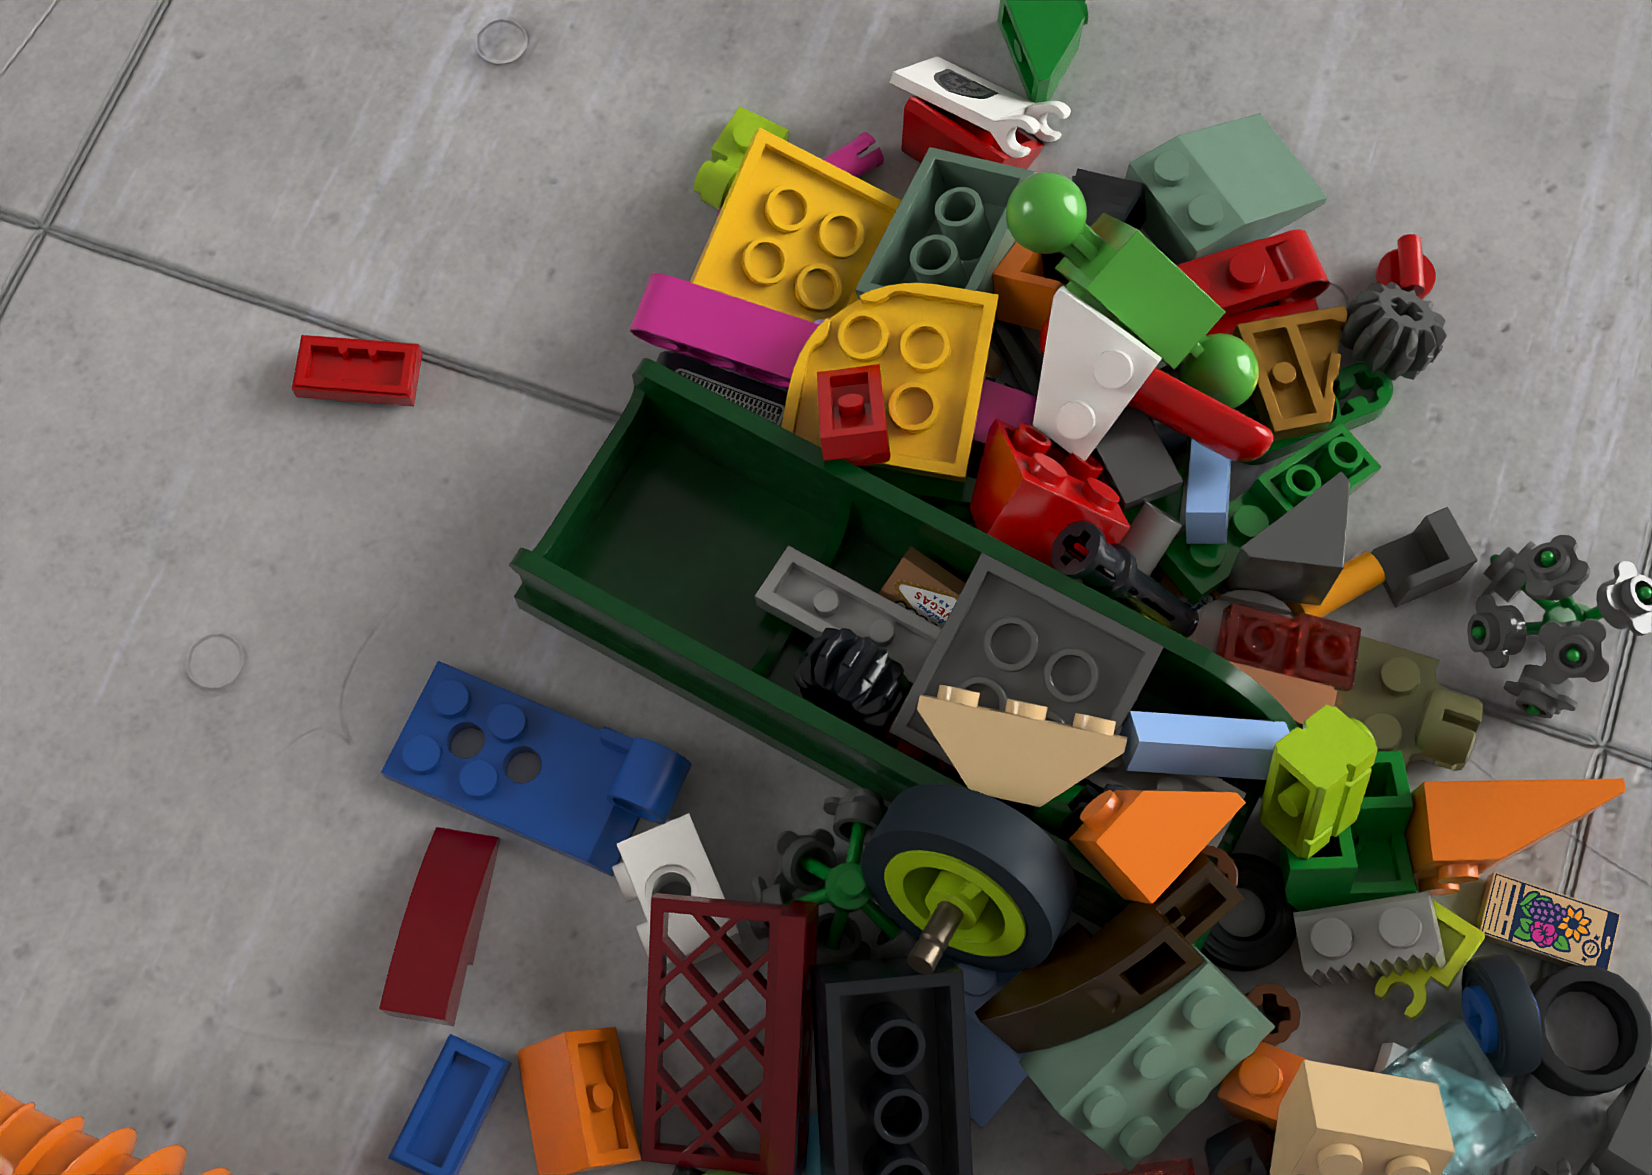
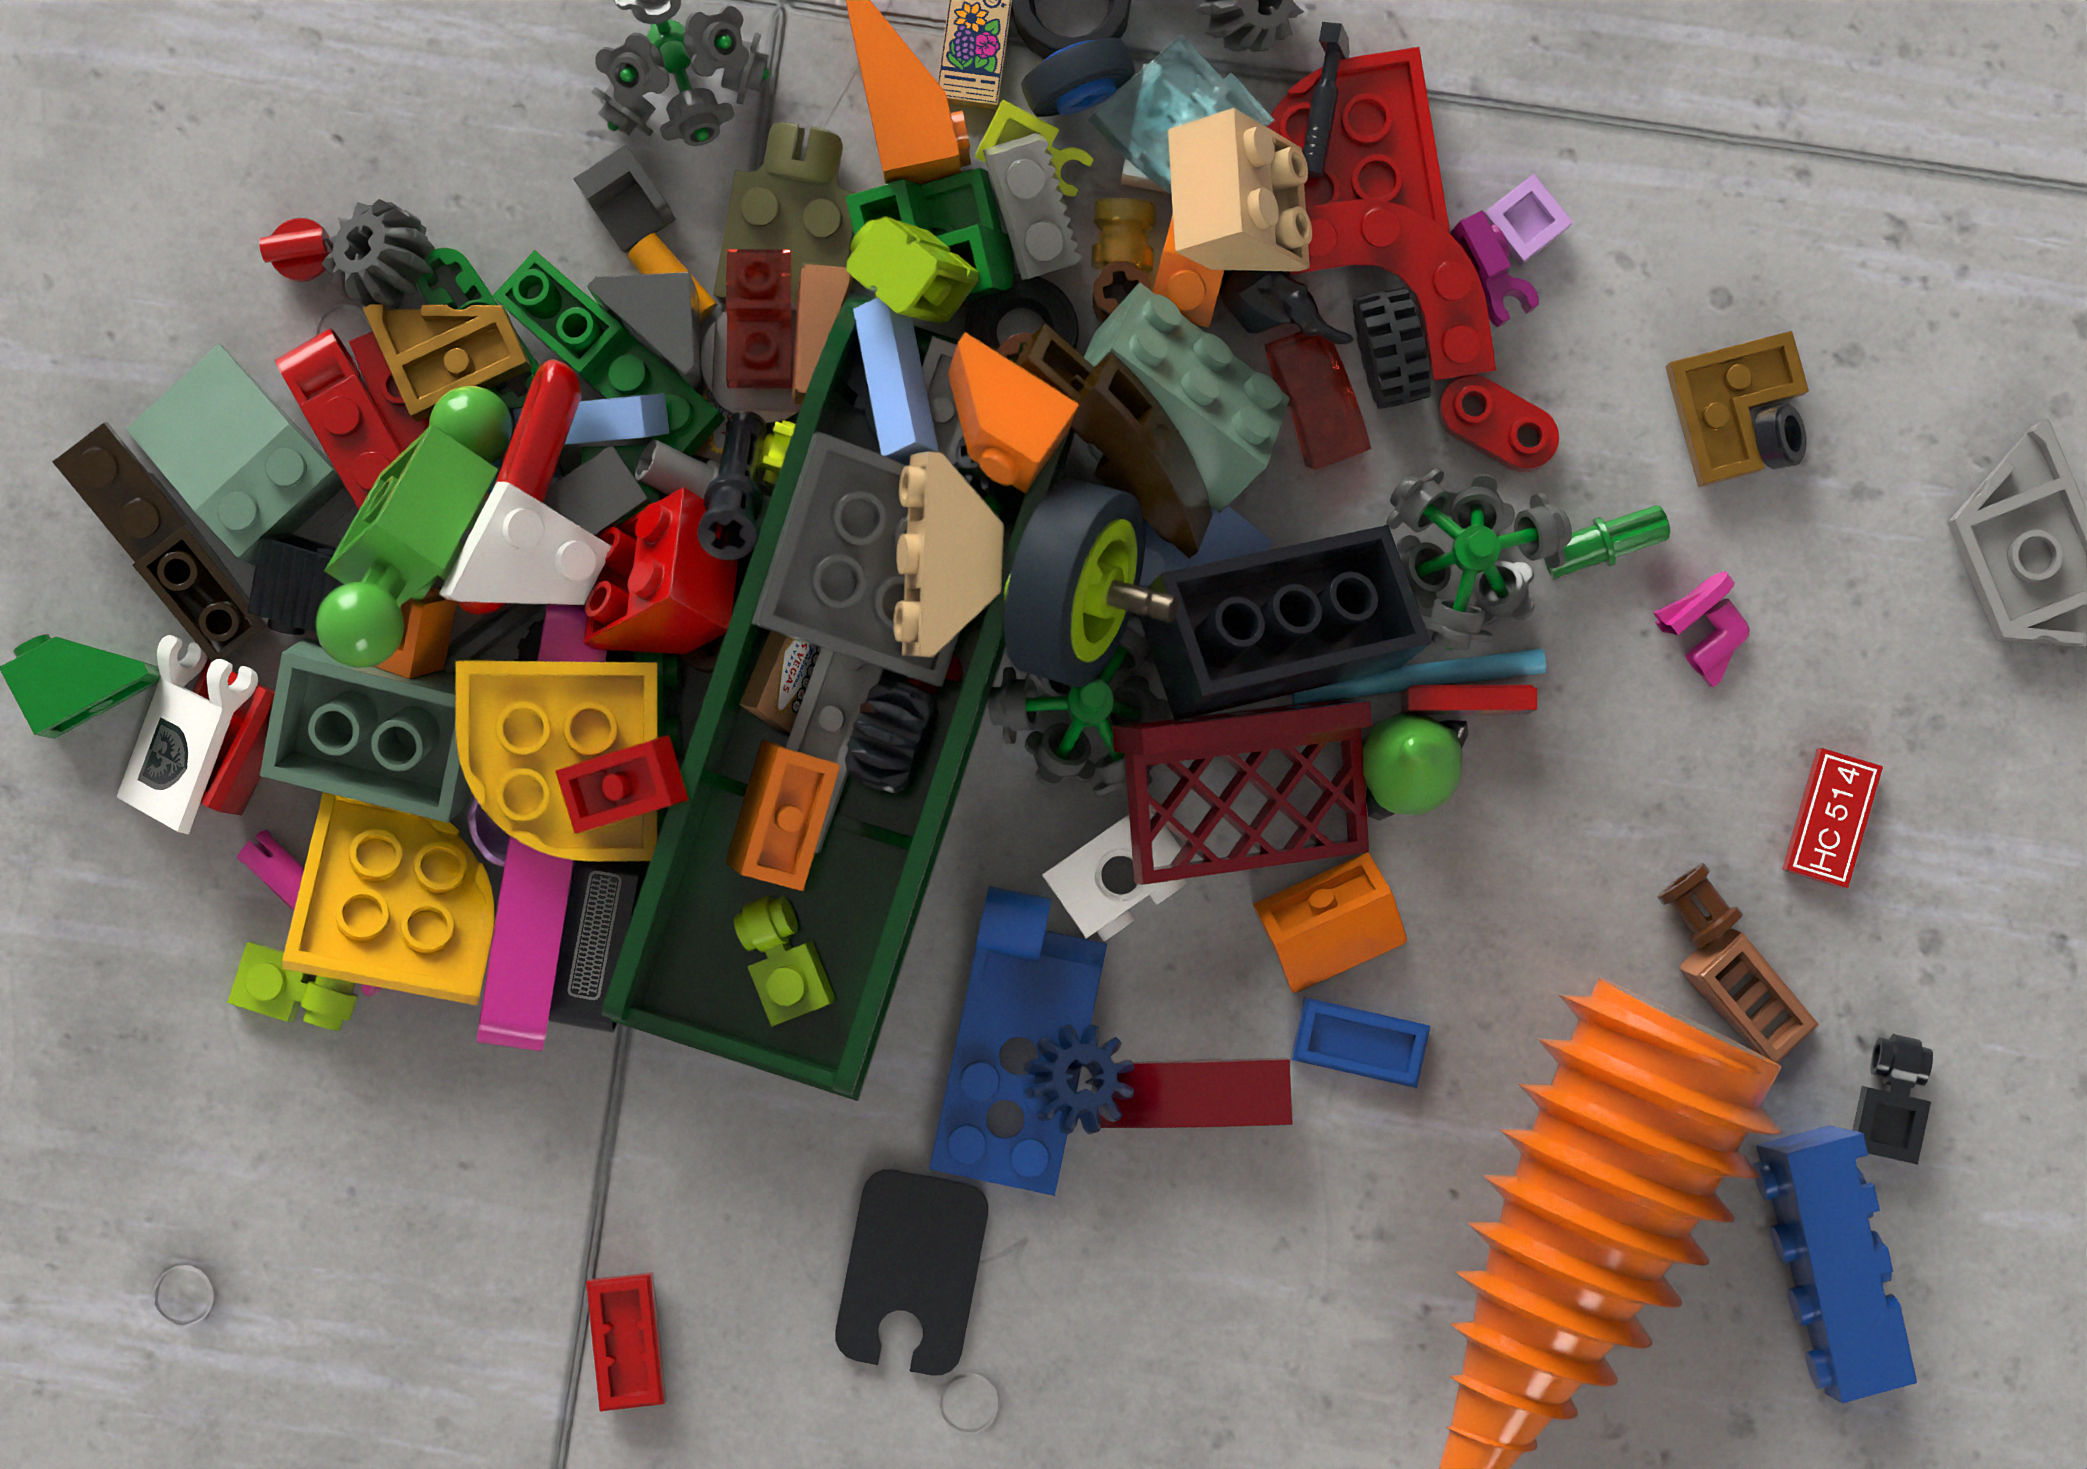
camera: 105 degrees left, 15 degrees up
(366, 638) = (916, 1254): none -> black piece
(458, 804) = (1084, 1103): none -> dark blue gear
(644, 556) = (789, 978): none -> lime plate
(794, 569) = (782, 815): none -> orange panel
(1141, 120) = (161, 542): none -> dark brown slope
(1329, 1033) = (1123, 232): none -> clear yellow wheel

